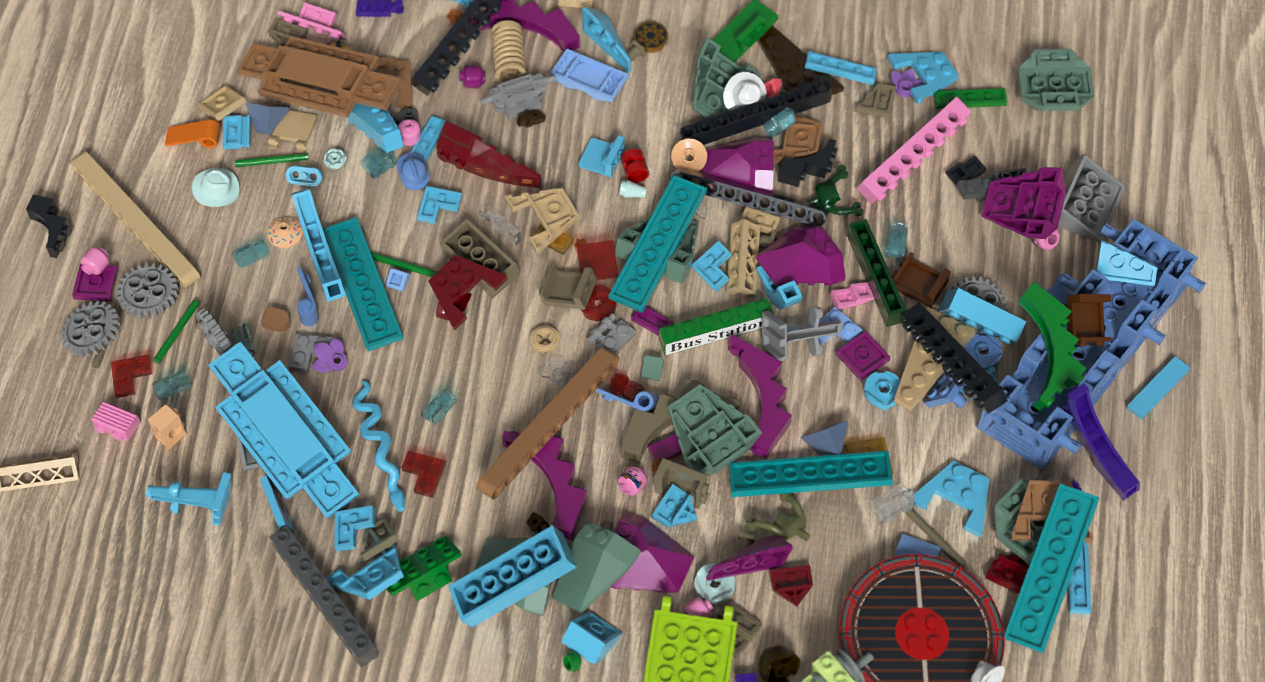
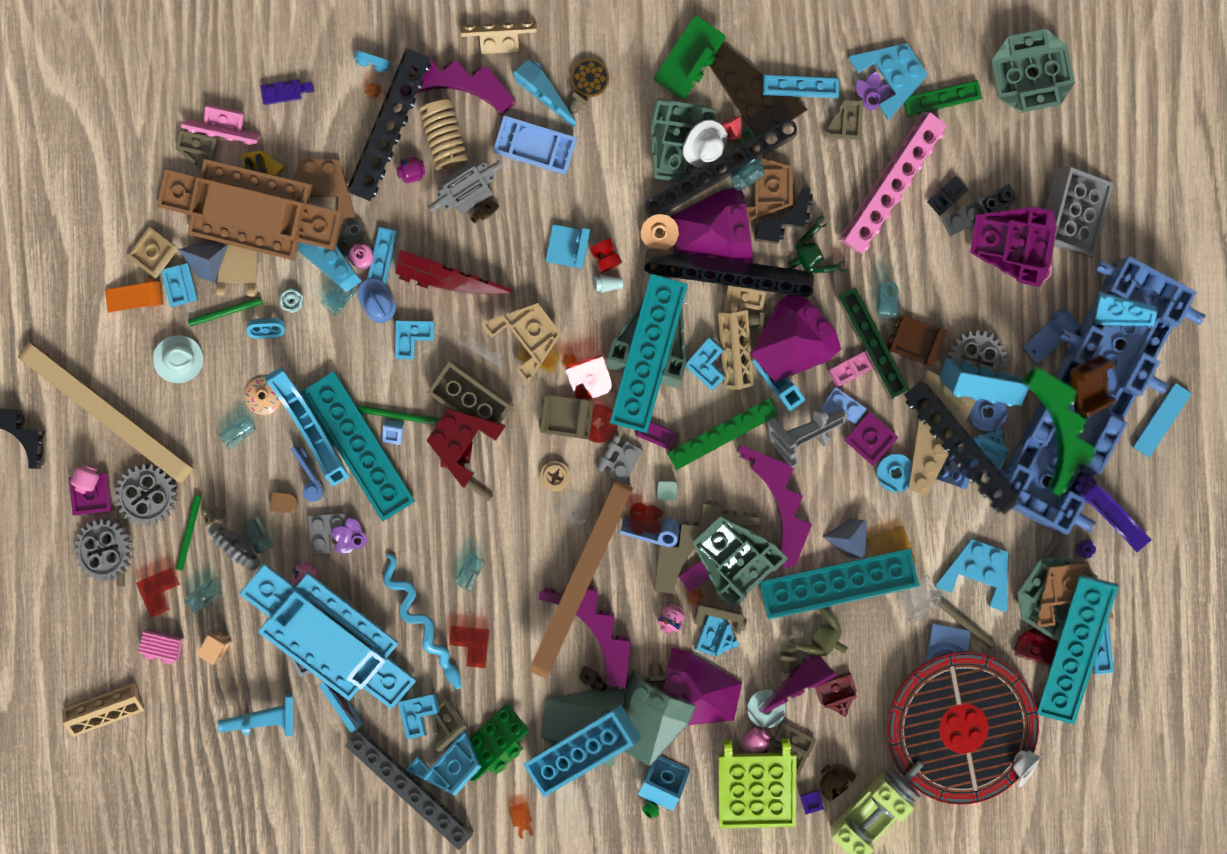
camera: 15 degrees left, 30 degrees up
(432, 648) = (521, 817): none -> clear orange plate
(464, 337) = (479, 490): none -> dark tan piece

